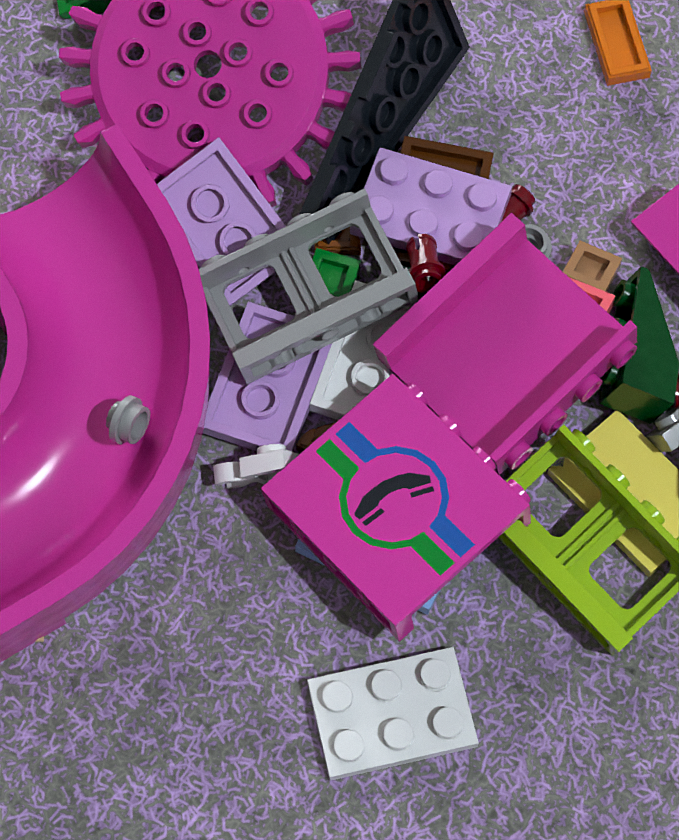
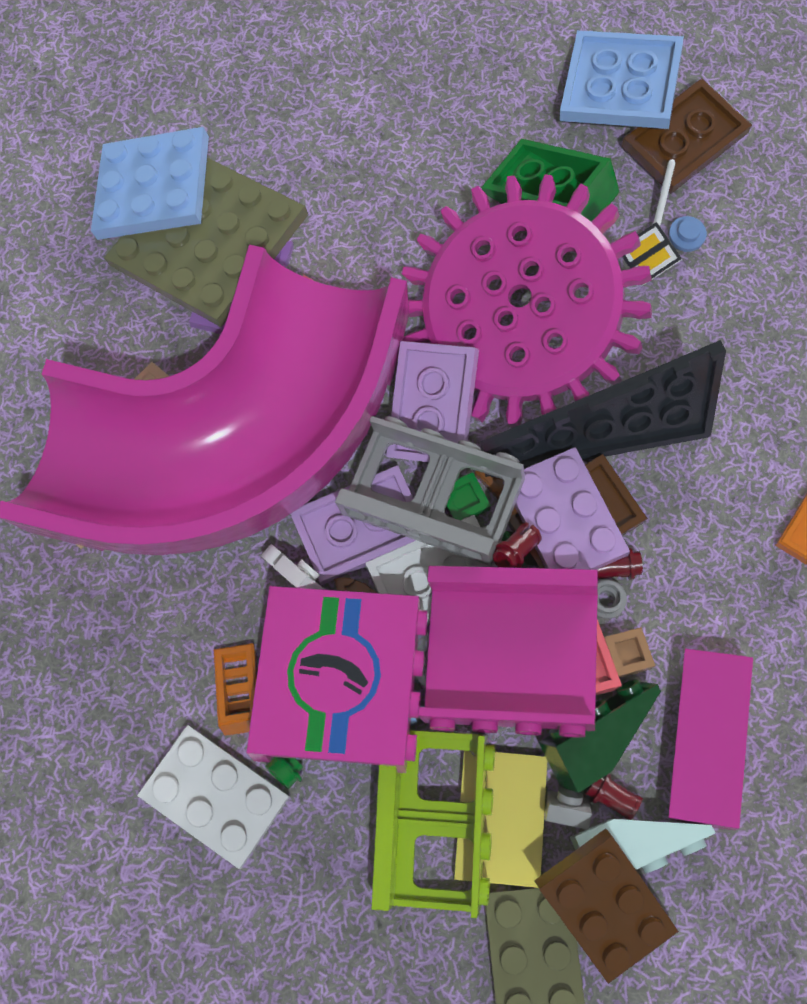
camera: 50 degrees right, 5 degrees up
(127, 420) = (235, 469): light grey plate -> none
(347, 634) = (240, 722): none -> orange slope
(428, 630) = (285, 770): none -> green plate

